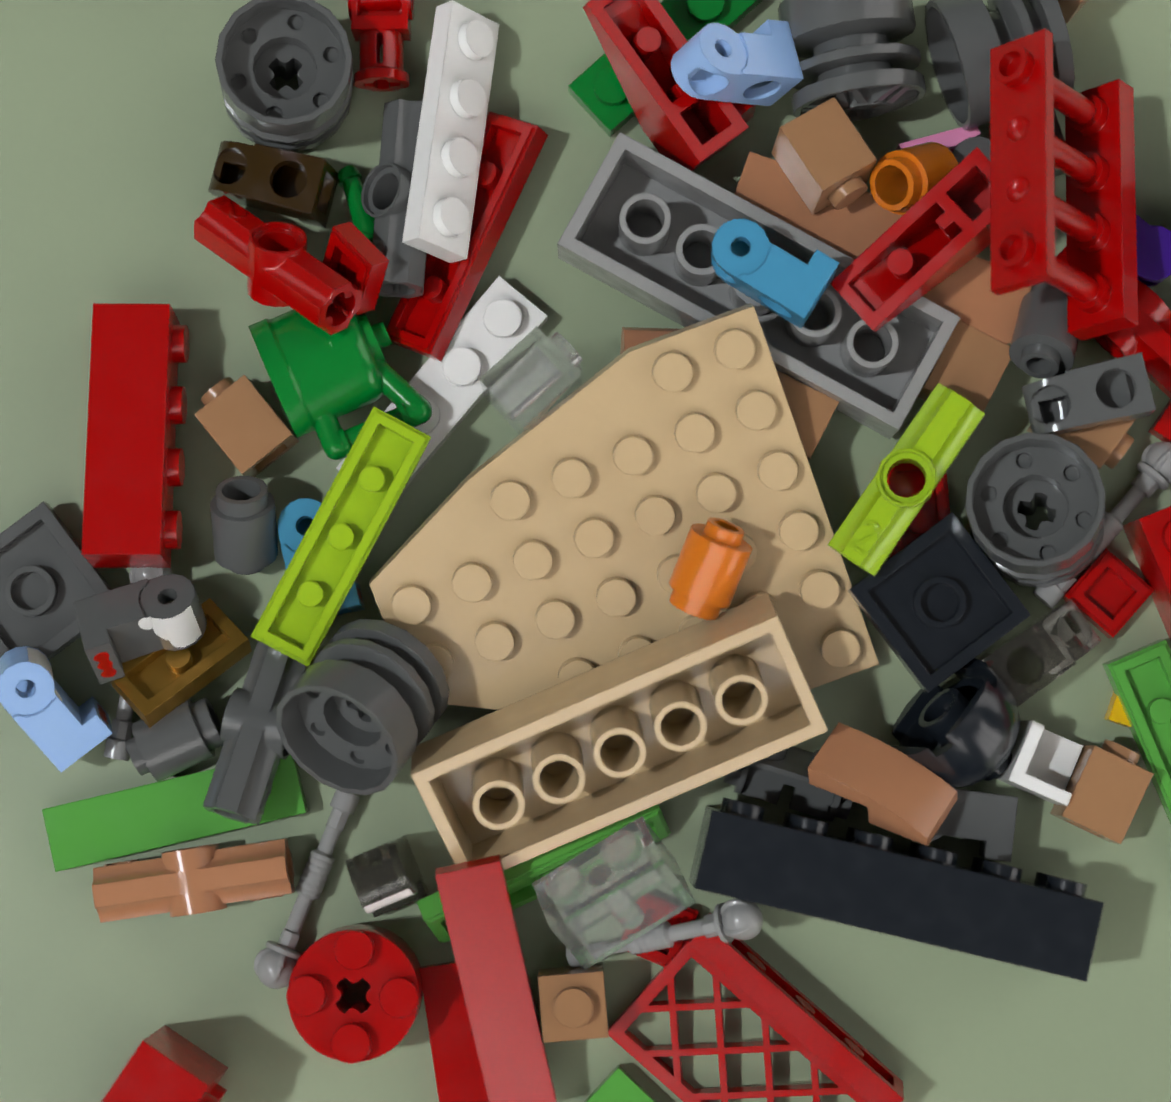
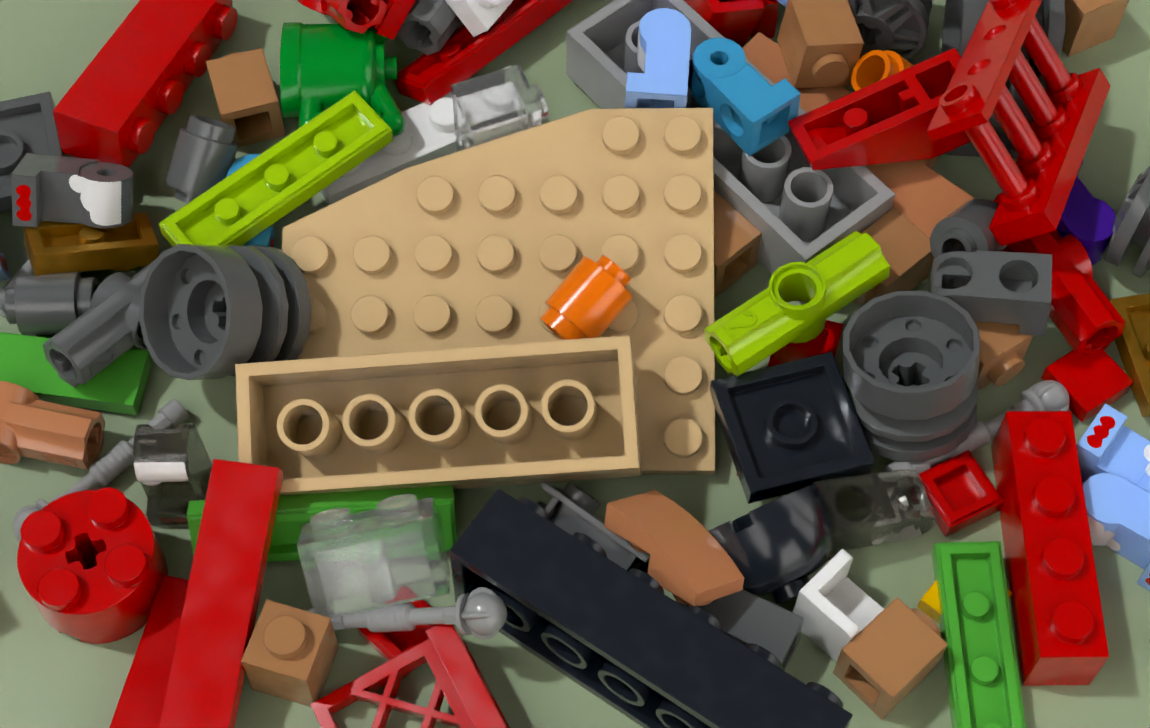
camera: 20 degrees right, 25 degrees down
(678, 247) = (664, 59): none -> light blue leg

